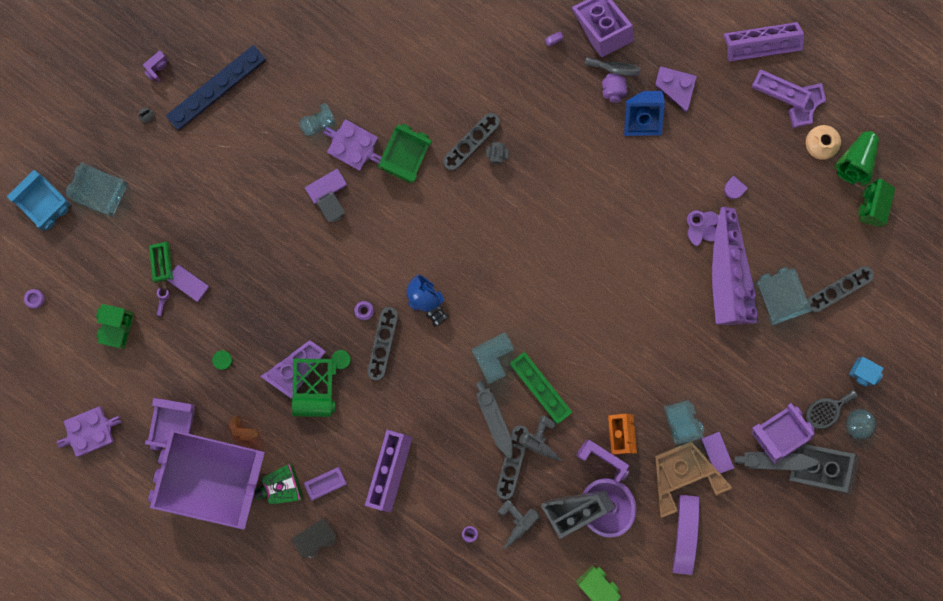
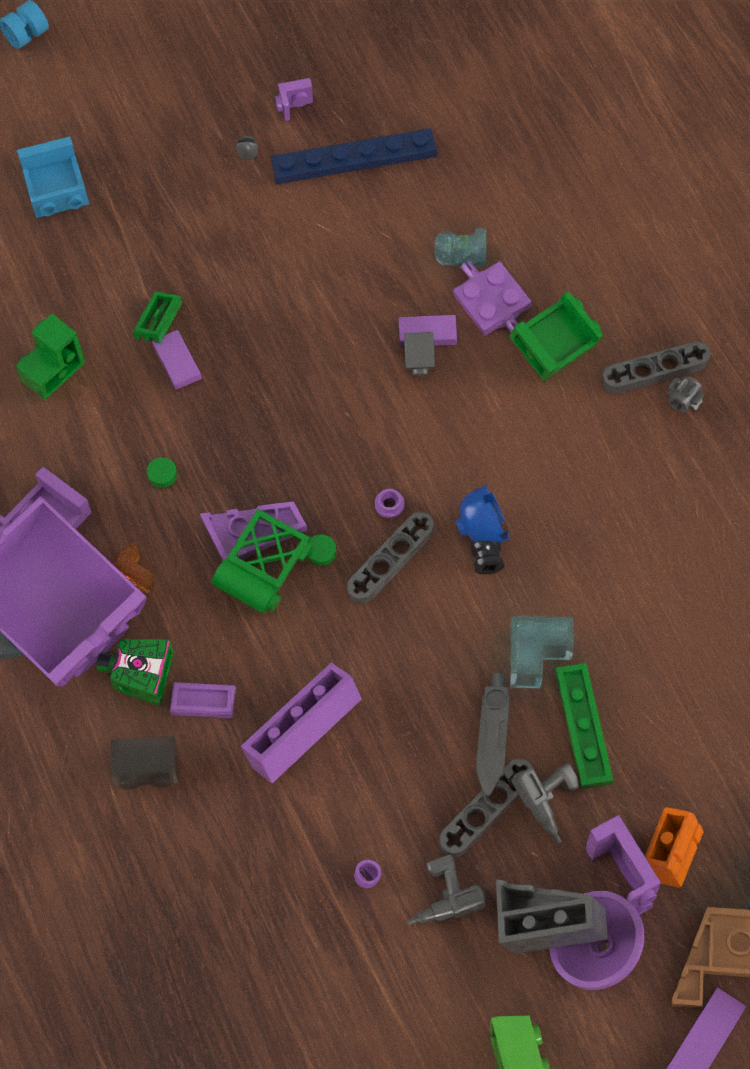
camera: 30 degrees right, 20 degrees down
(96, 189) = (130, 198): clear light blue panel -> none
(162, 299) = (133, 362): medium lavender hand -> none

